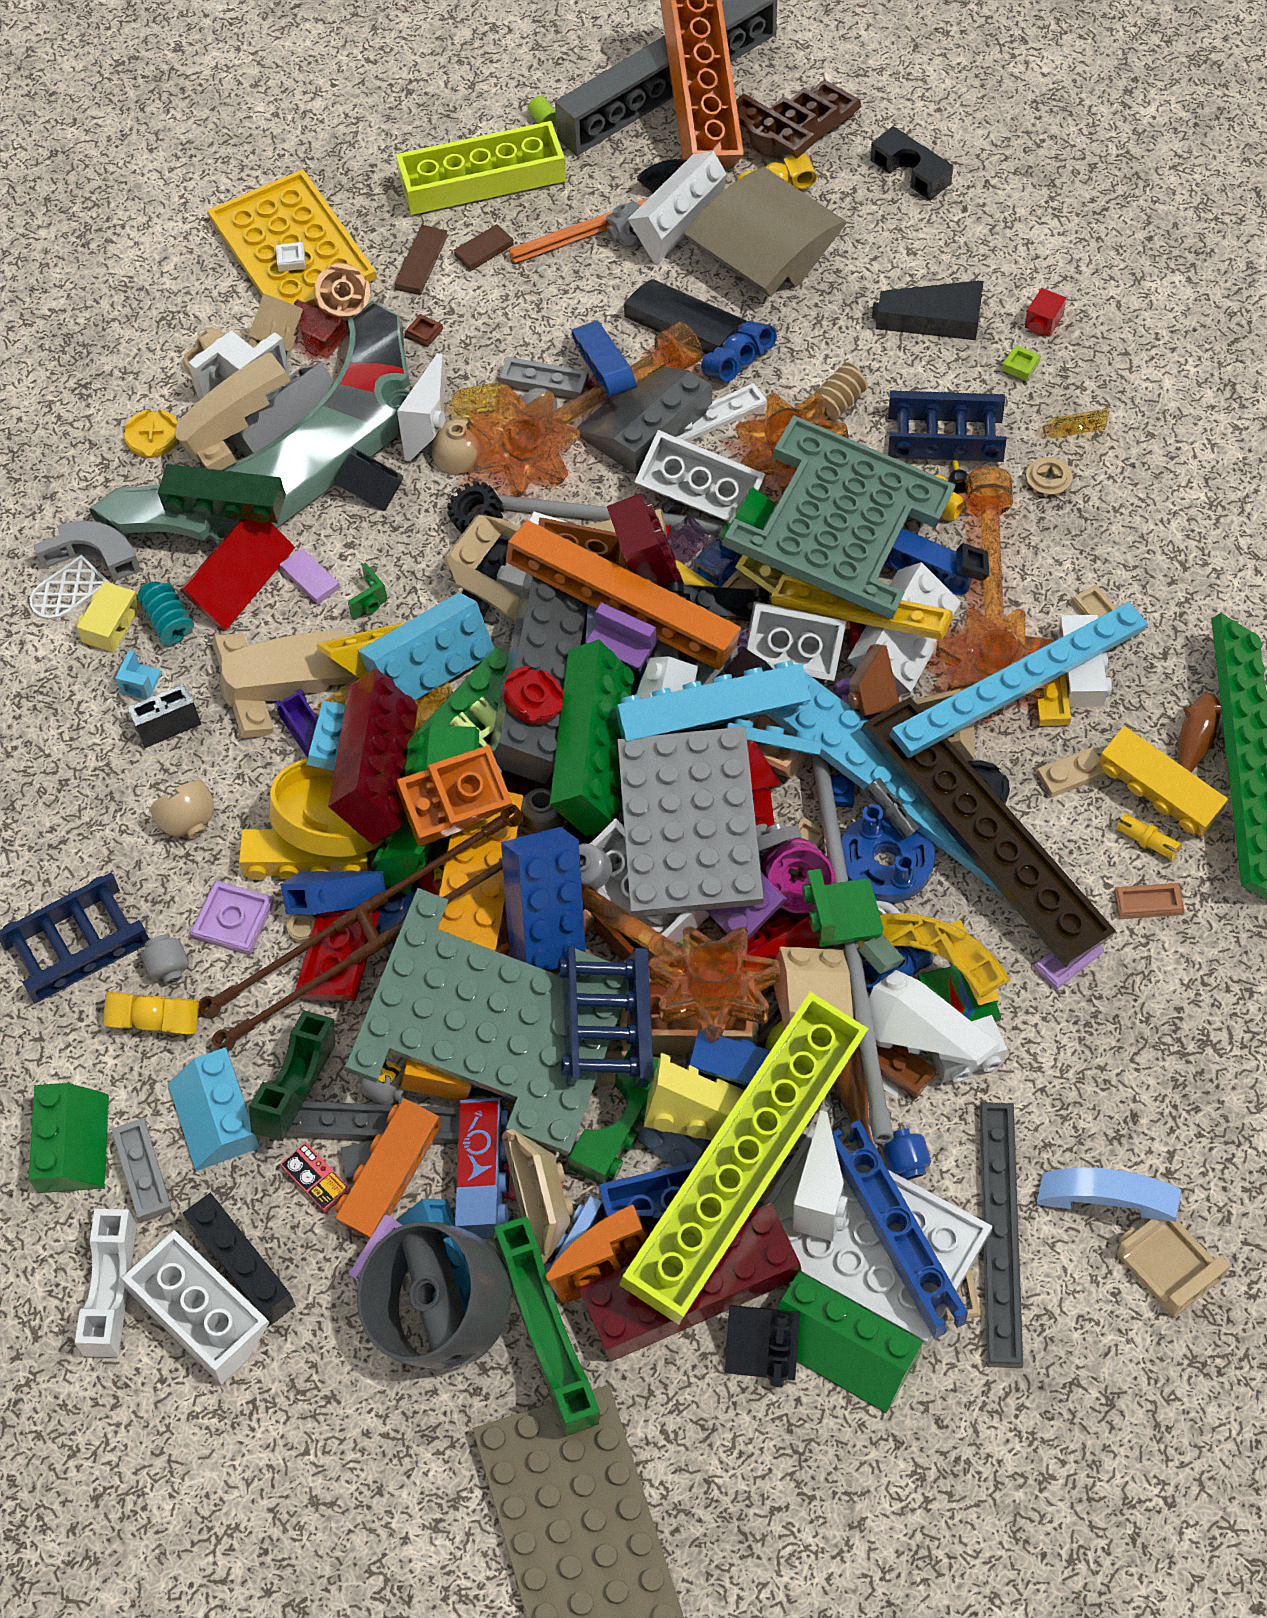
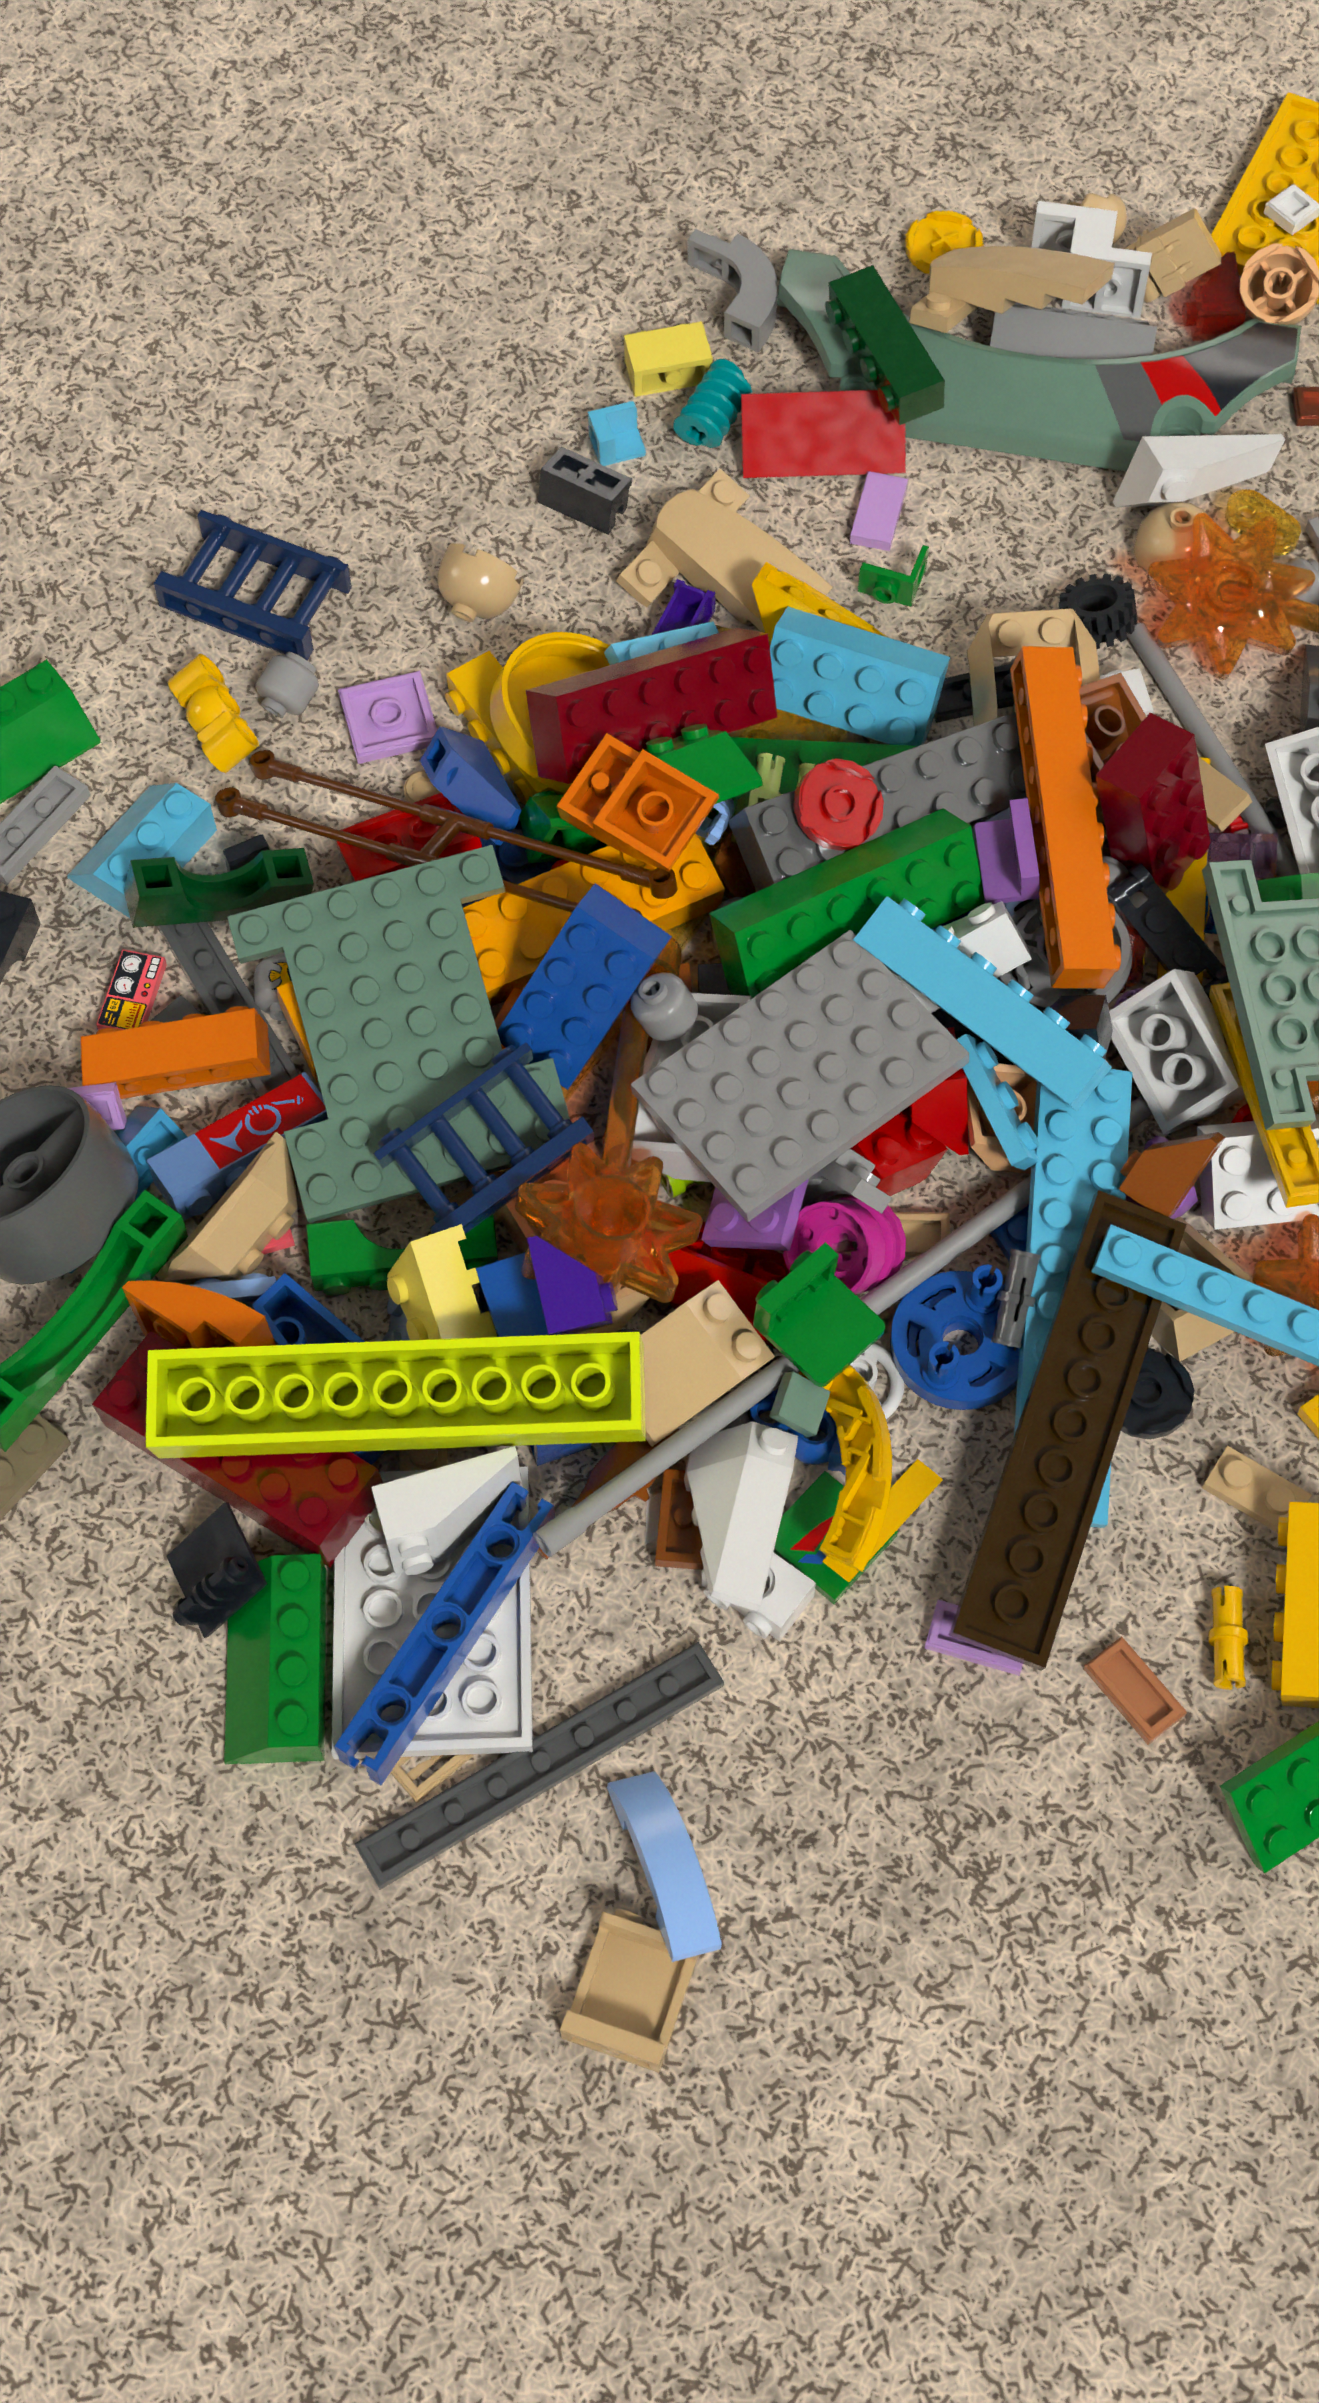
camera: 55 degrees right, 5 degrees up
(69, 608) = (676, 279): white window -> none
(274, 1052) = (244, 852): none -> black tile
(369, 479) = (1051, 479): black panel -> none
(755, 1014) = (570, 1292): none -> dark purple slope
(907, 1154) = (565, 1594): blue head -> none

